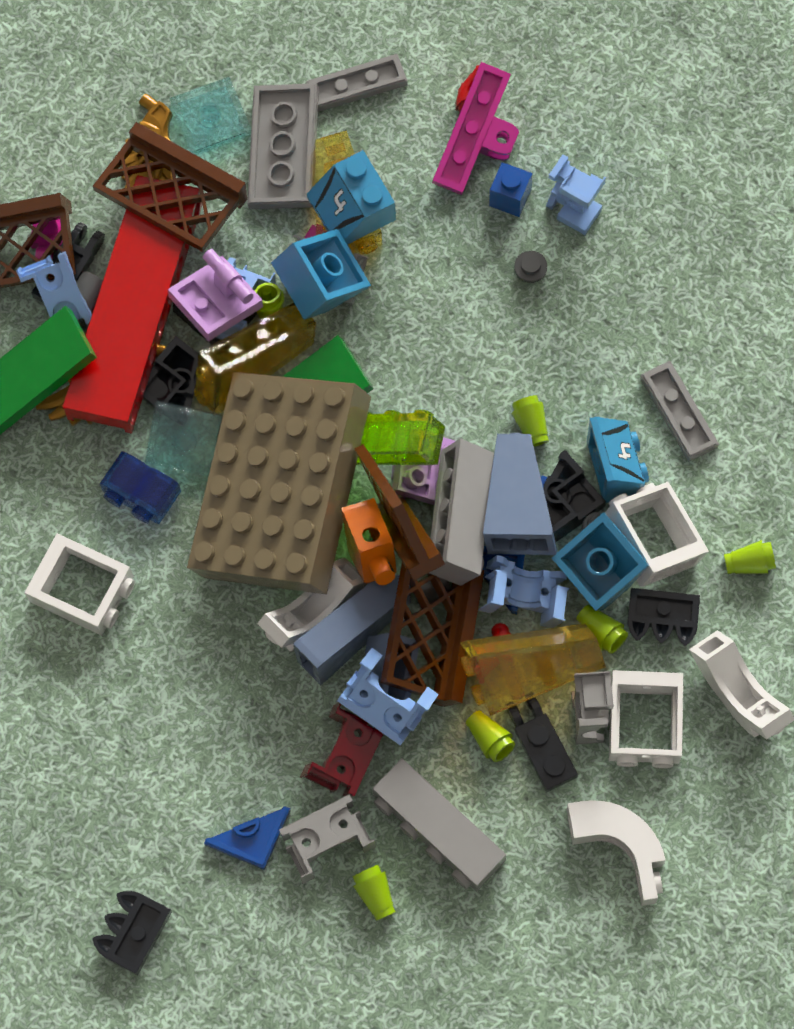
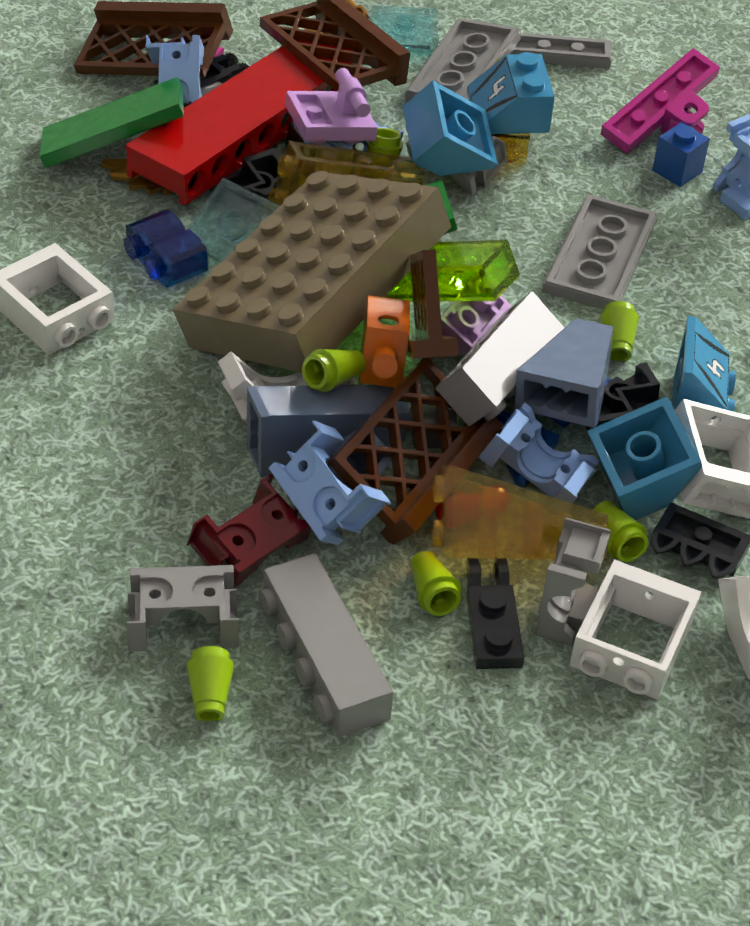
camera: 15 degrees right, 25 degrees down
(252, 840) = (91, 586): blue tile -> none
(345, 592) = (330, 368): none -> lime cone
(483, 330) = (600, 252): none -> light grey tile
(530, 266) = (675, 220): dark grey plate -> none
(618, 825) = (554, 728): white arch -> none

